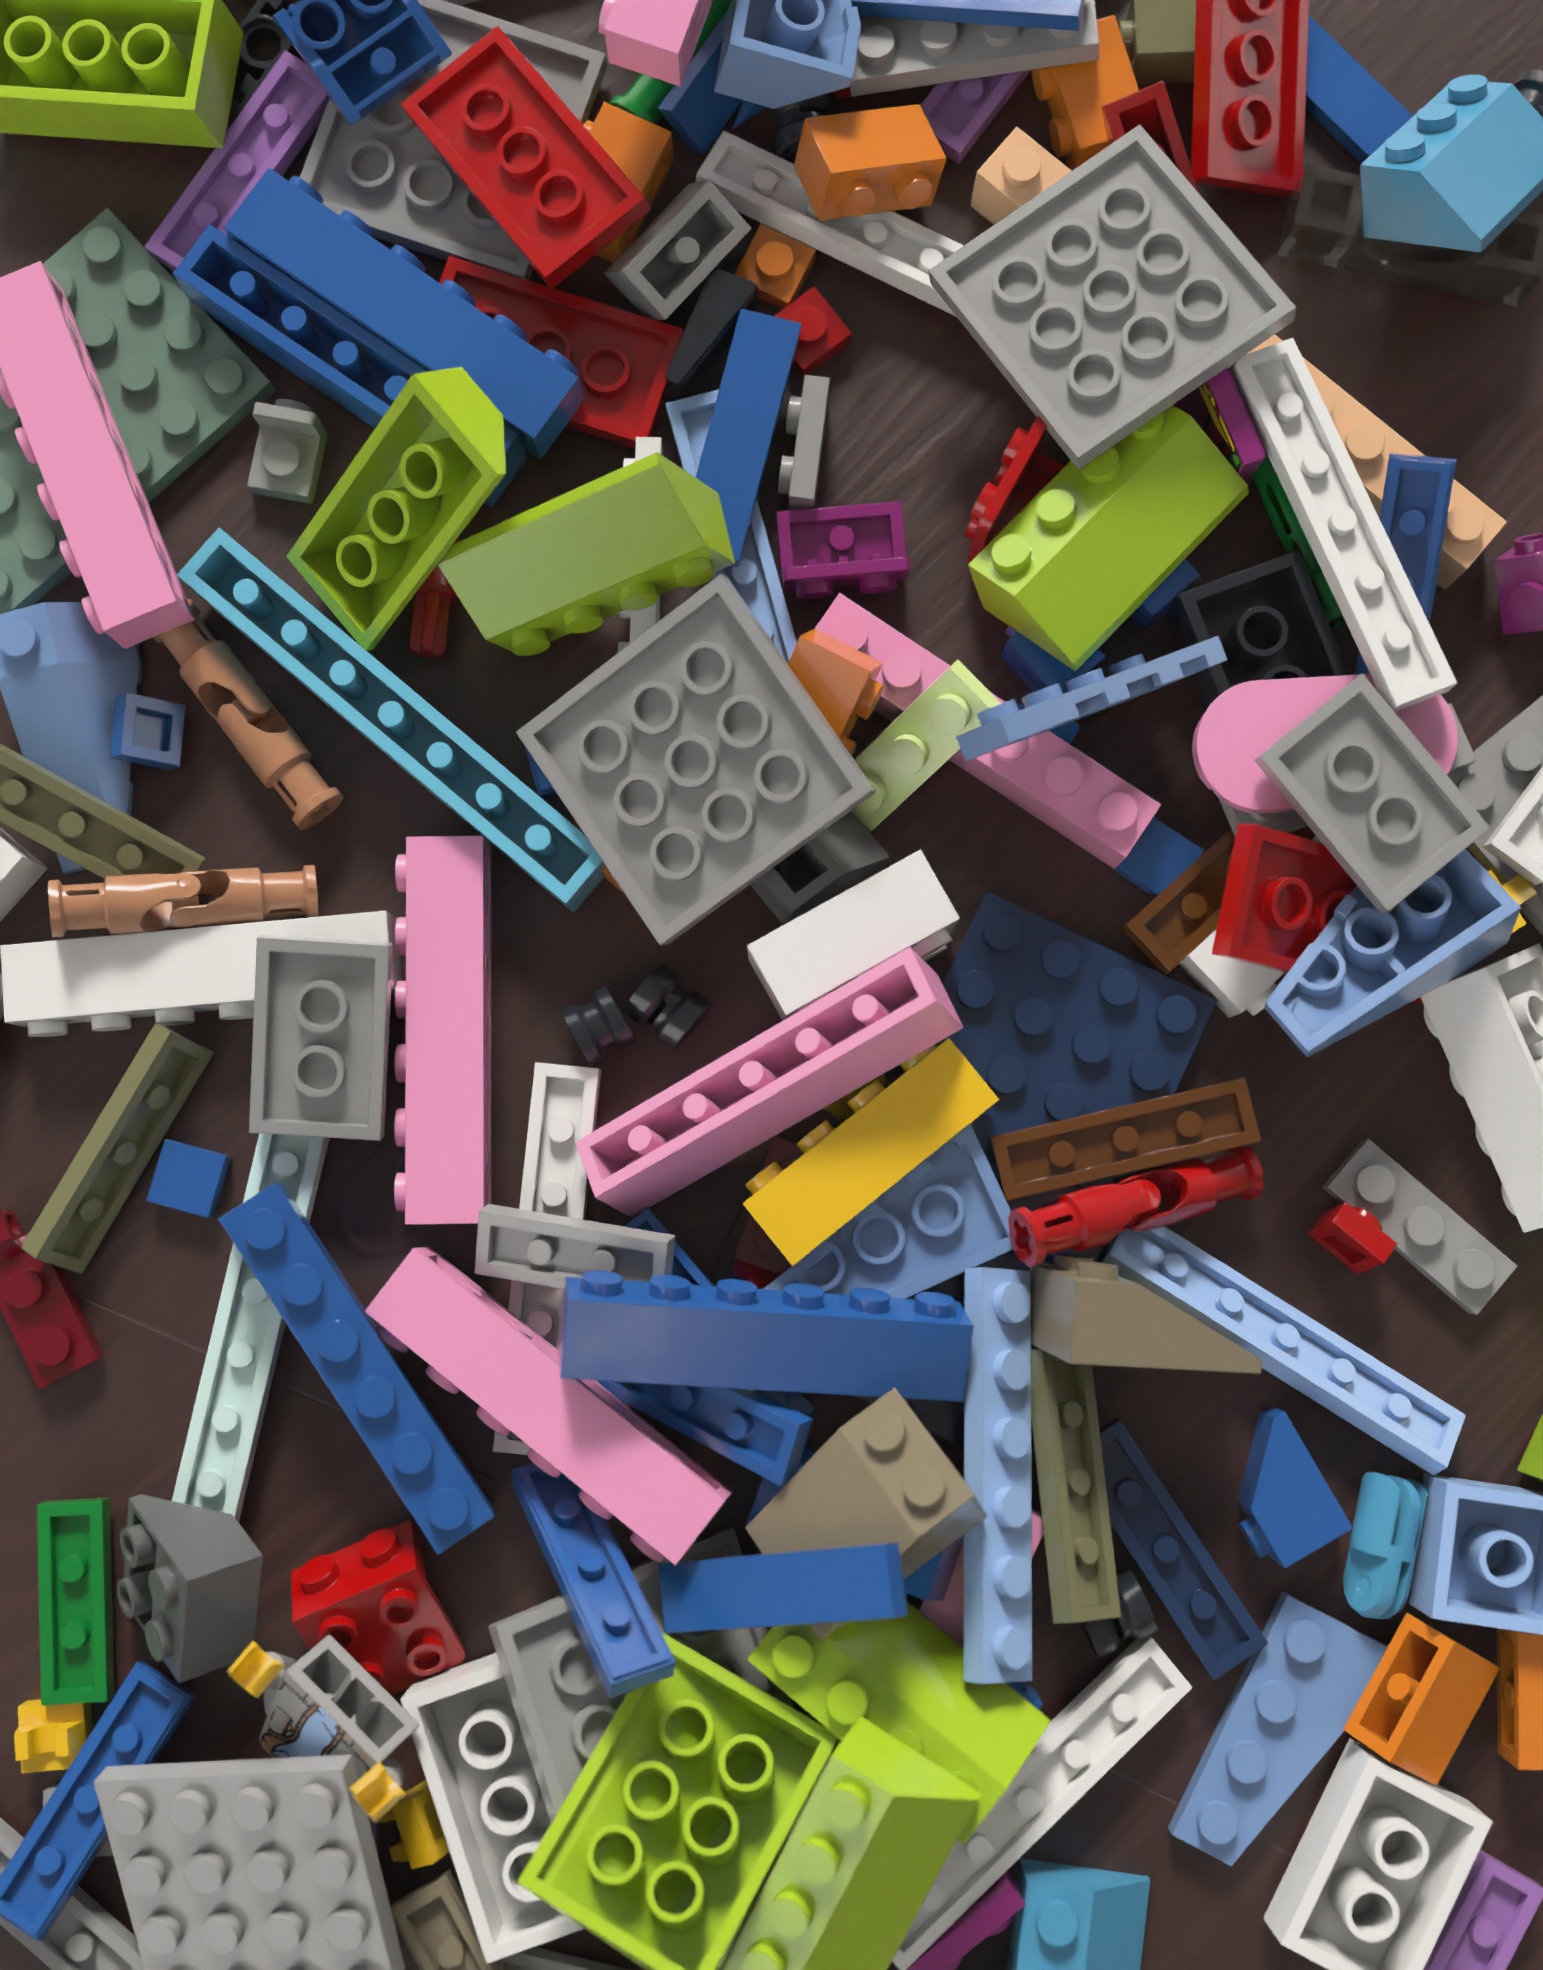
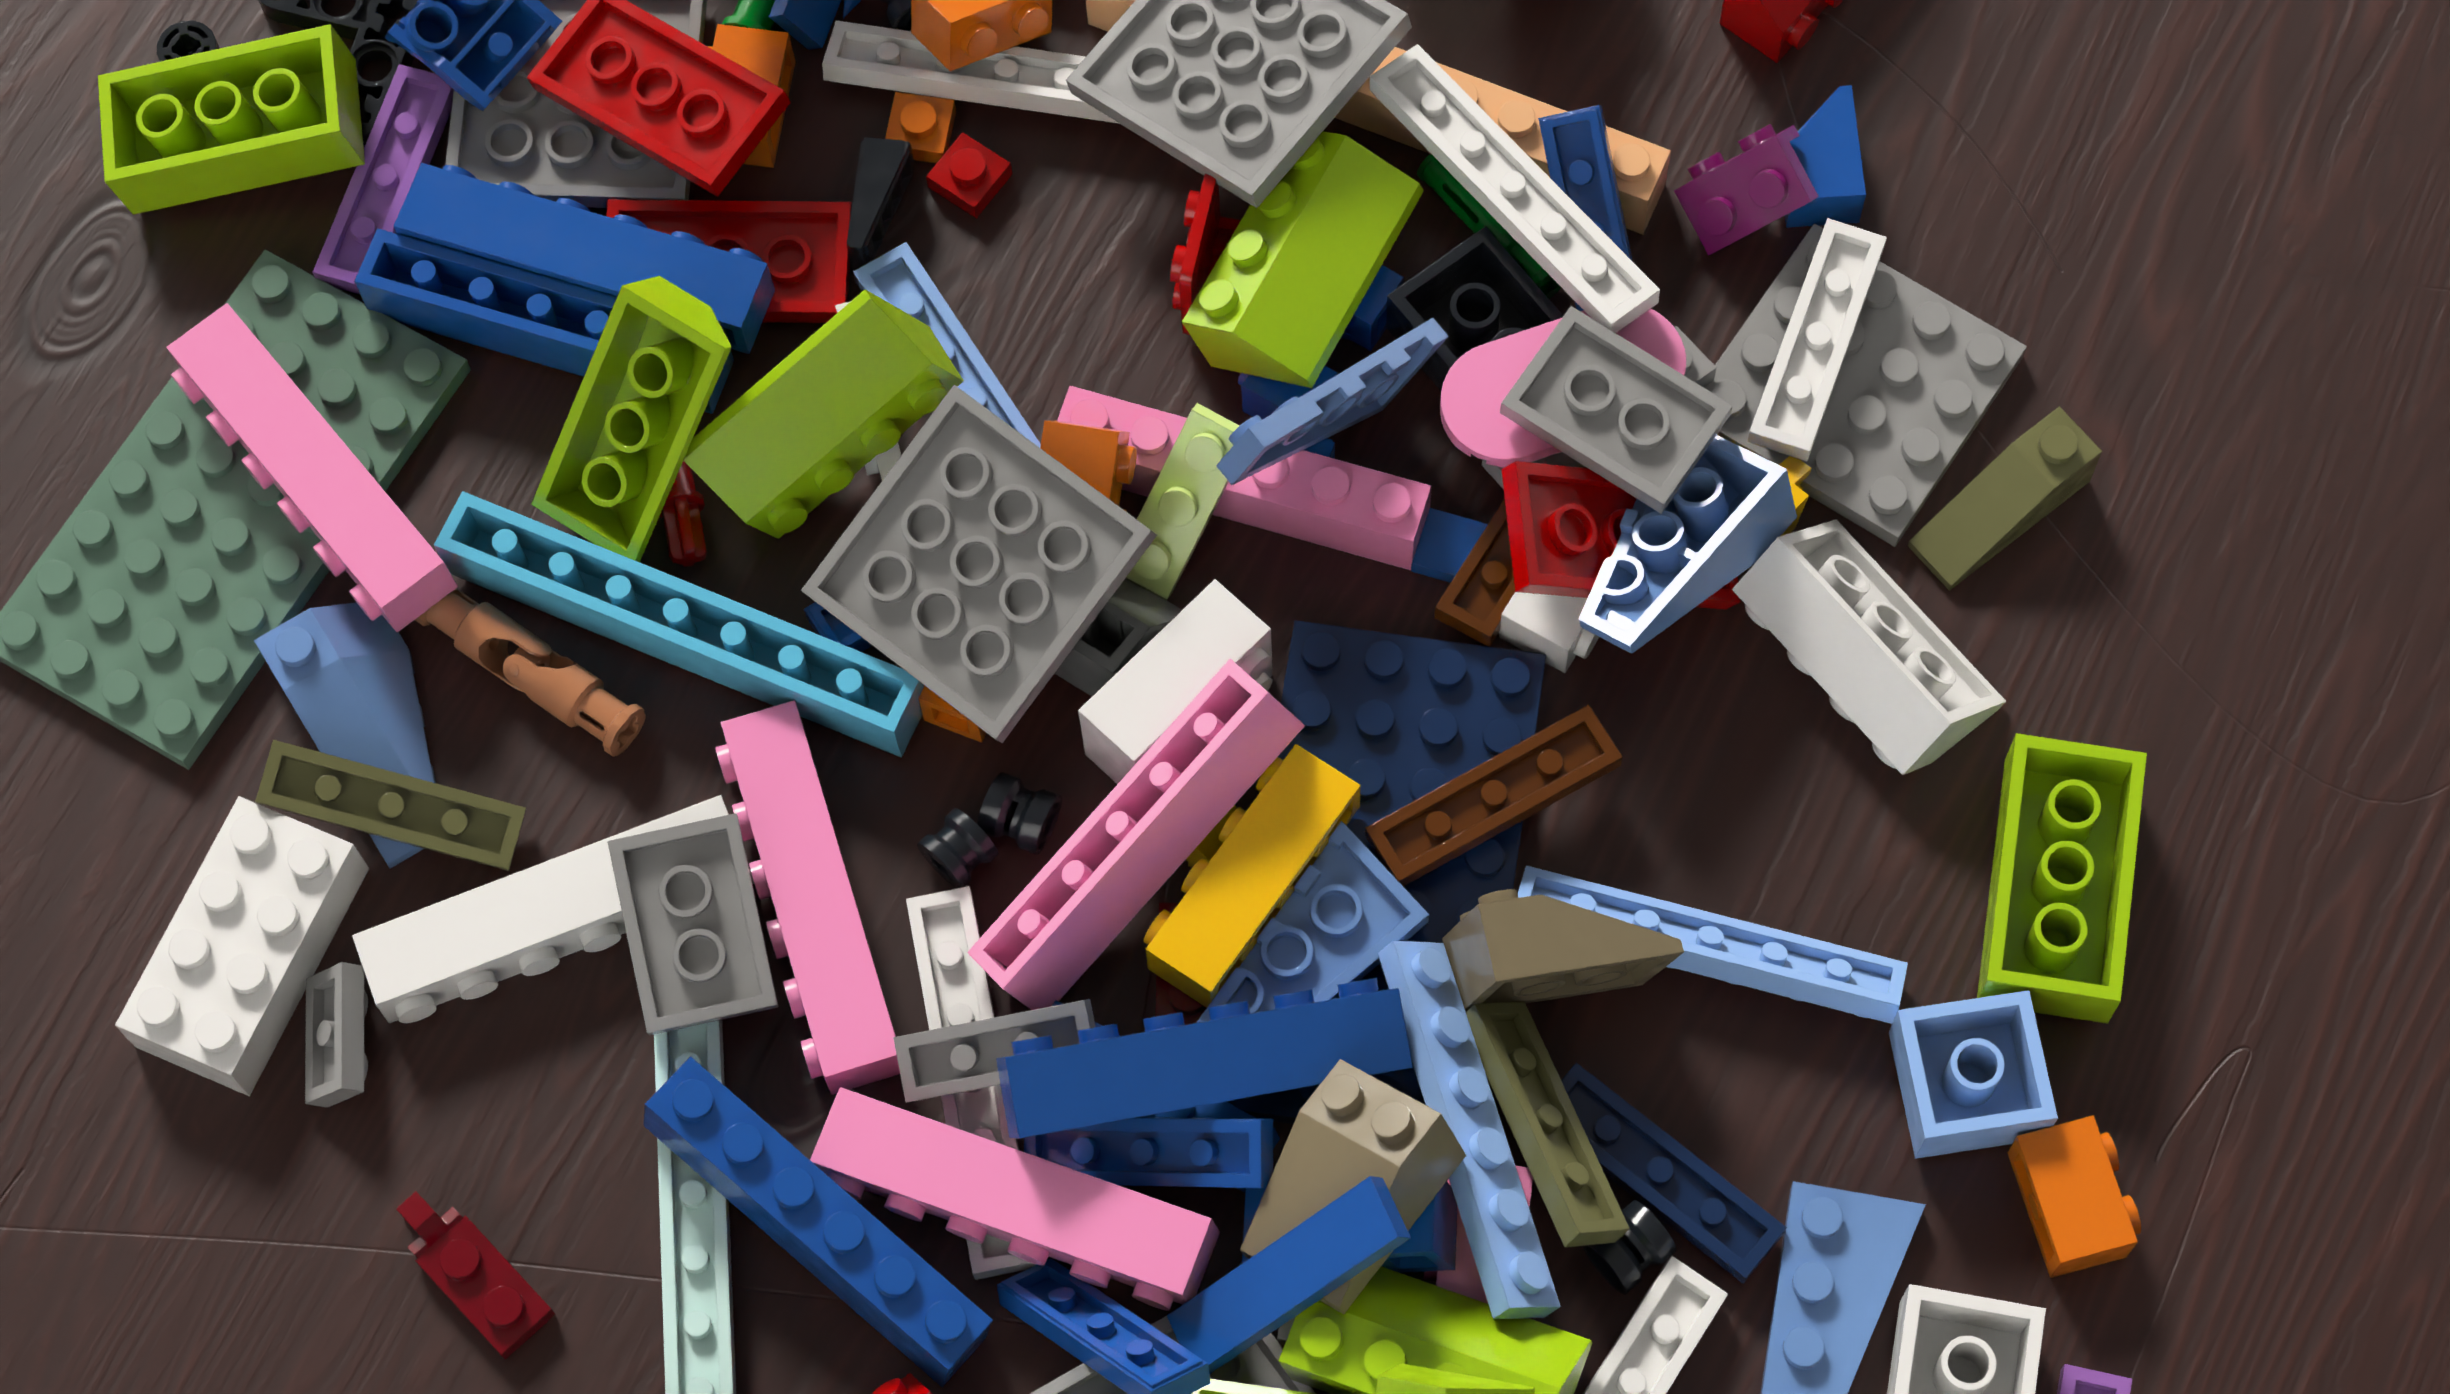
camera: 15 degrees left, 15 degrees down
(117, 1149) = (517, 1101): olive plate -> none
(138, 903) = (465, 857): nougat piece -> none
(147, 731) = (437, 706): blue plate -> none
(188, 1178) = (594, 1113): blue tile -> none
(287, 451) = (500, 417): light grey bracket -> none
(678, 250) = (824, 133): light grey brick -> none
(747, 417) = (935, 255): blue tile -> none
(806, 420) = (1000, 297): light grey plate -> none
(842, 549) = (1060, 352): magenta bracket -> none
(1100, 1212) = (1520, 850): red piece -> none
(1225, 420) = (1381, 132): magenta tile -> none
(1285, 1495) = (1760, 1085): blue slope -> none
(1353, 1237) = (1743, 830): red plate -> none
(1384, 1544) = (1868, 1103): dark azure arm -> none
(1421, 1699) = (1949, 1225): orange brick -> none
(1422, 1226) = (1807, 807): light grey plate -> none

